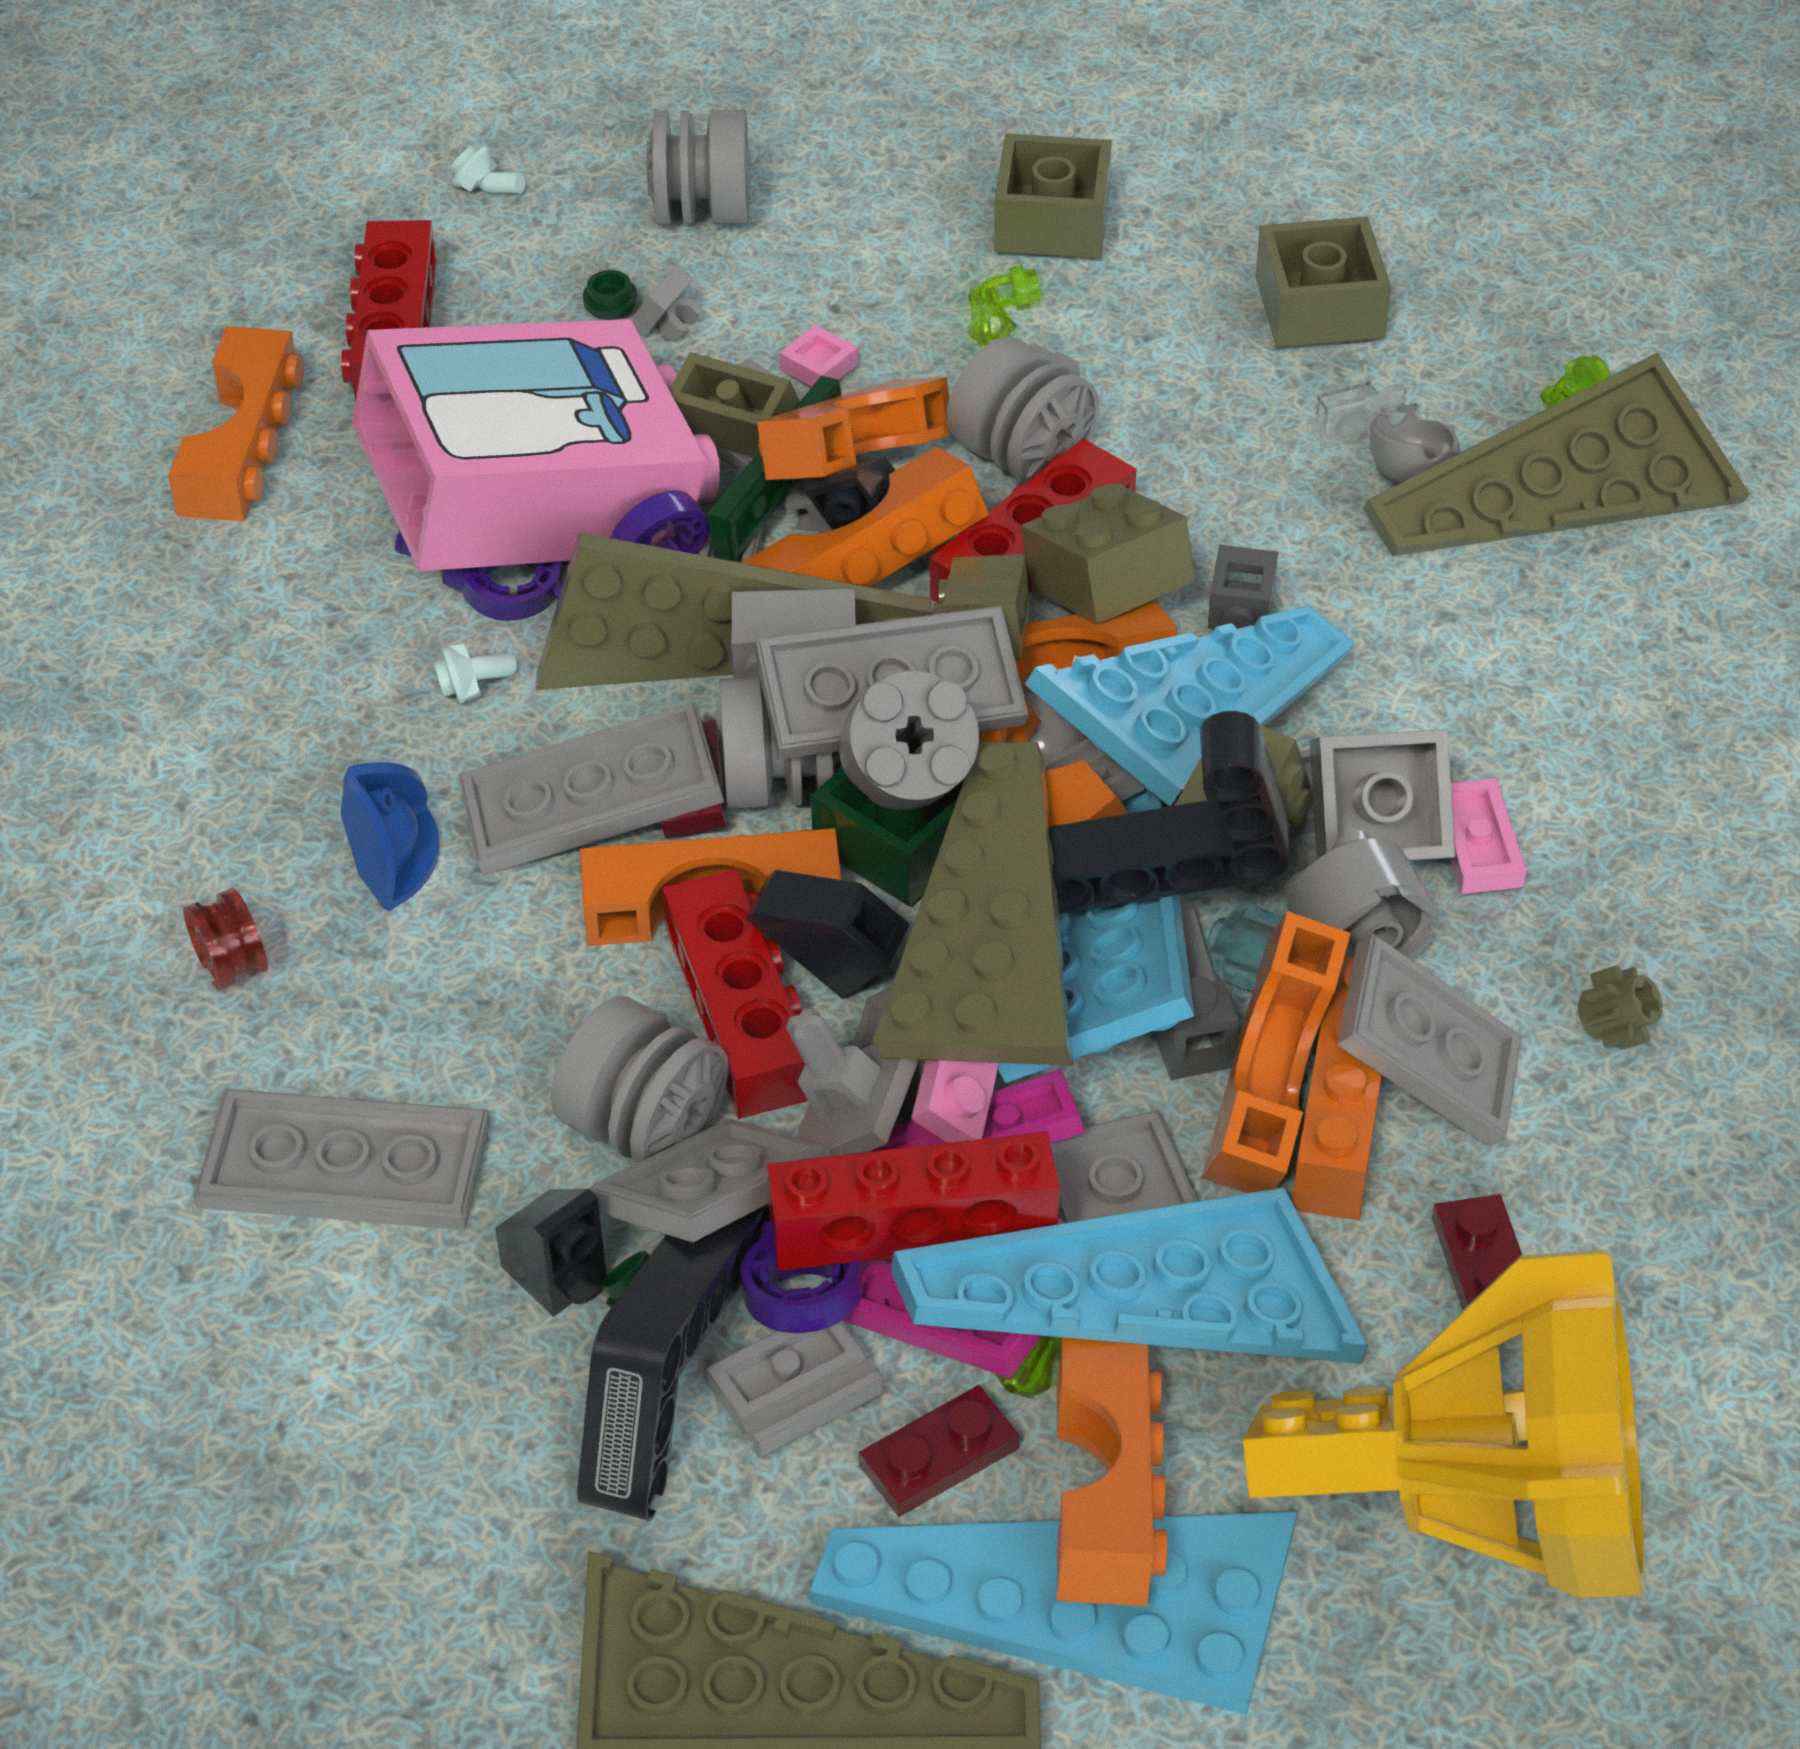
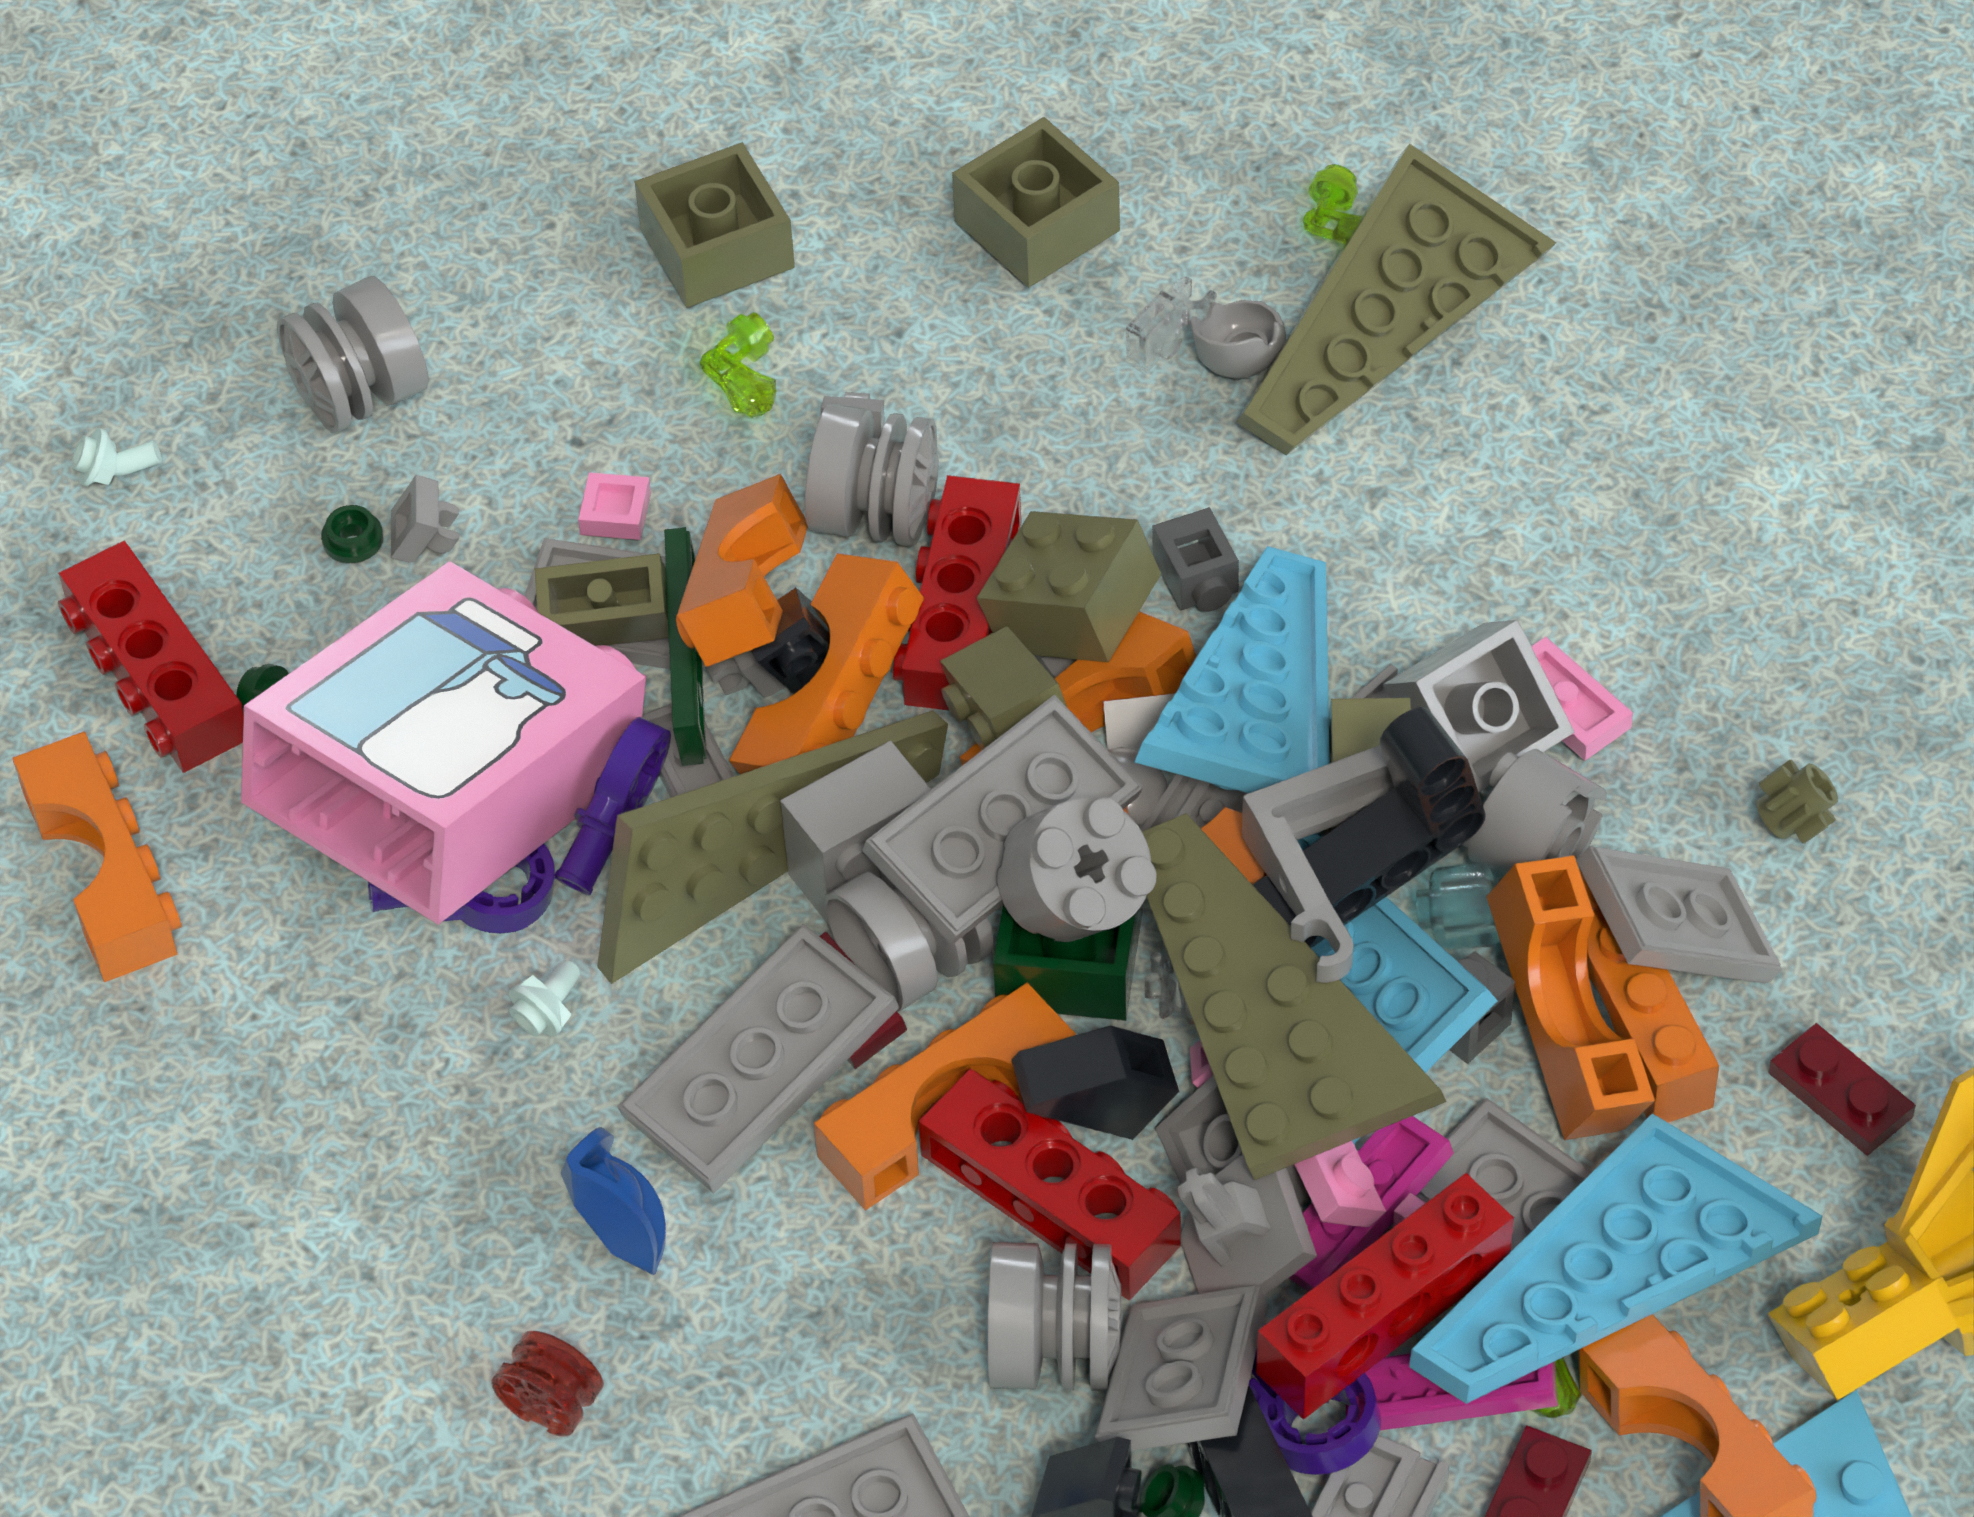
camera: 30 degrees left, 5 degrees up
(1112, 778) = (1298, 808): none -> light grey hinge

